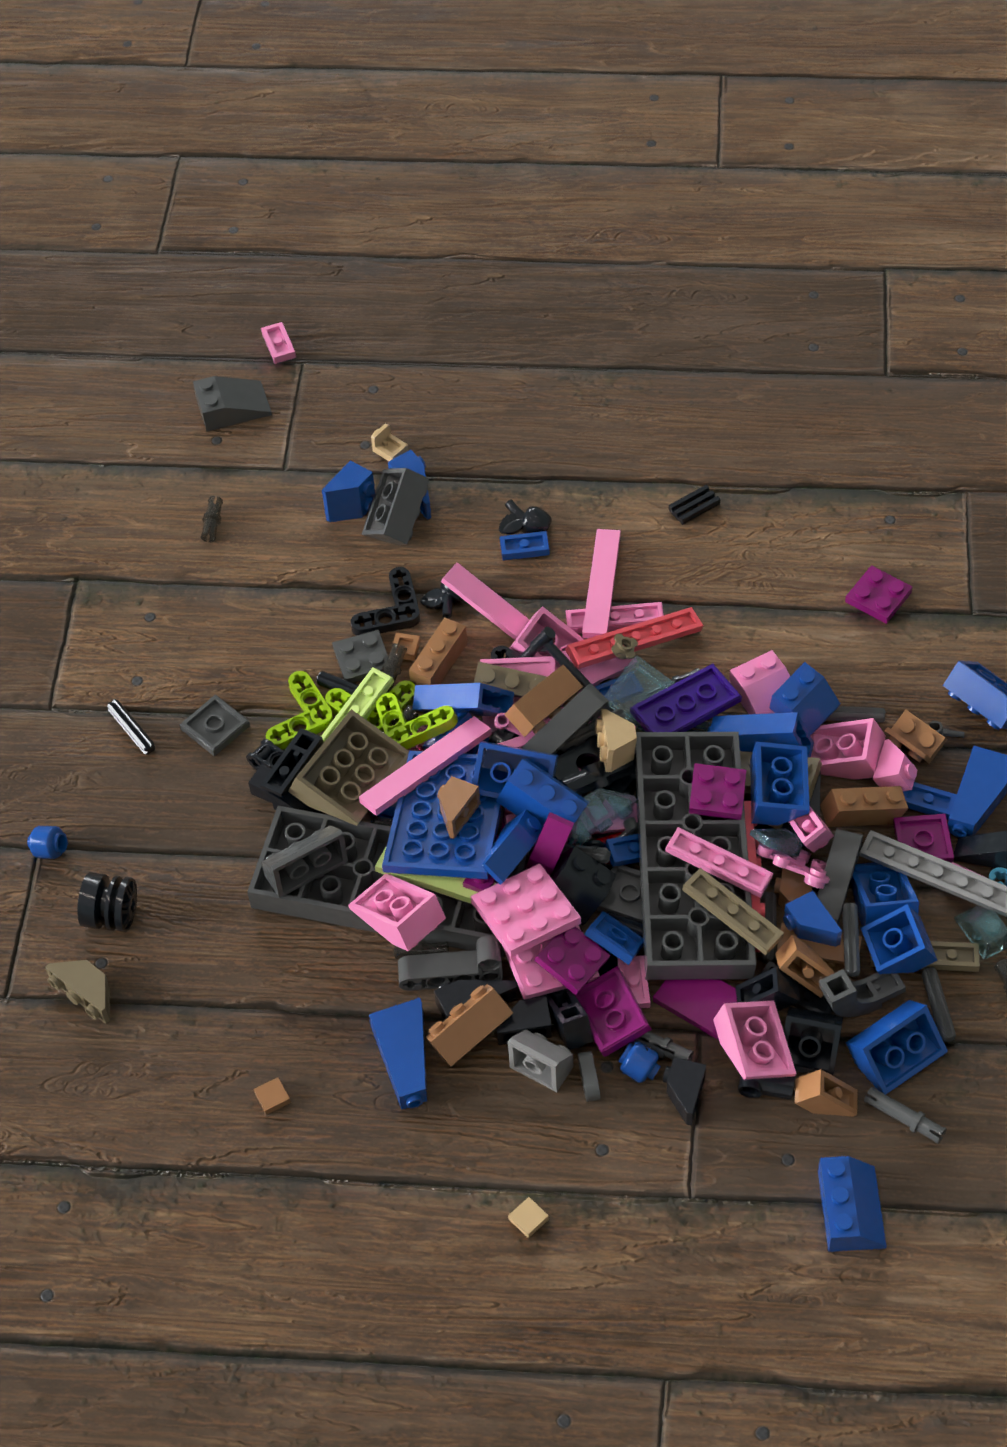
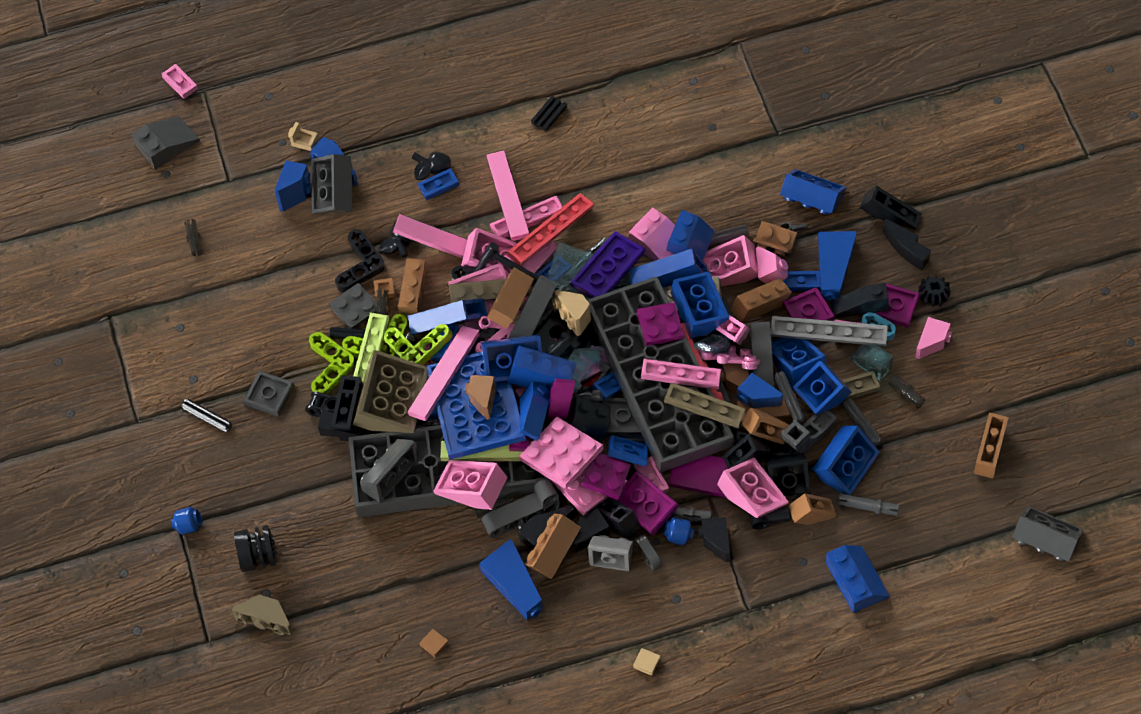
camera: 20 degrees left, 5 degrees up
(621, 651) = (548, 243): dark tan plate -> none
(878, 594) = (708, 140): magenta plate -> none

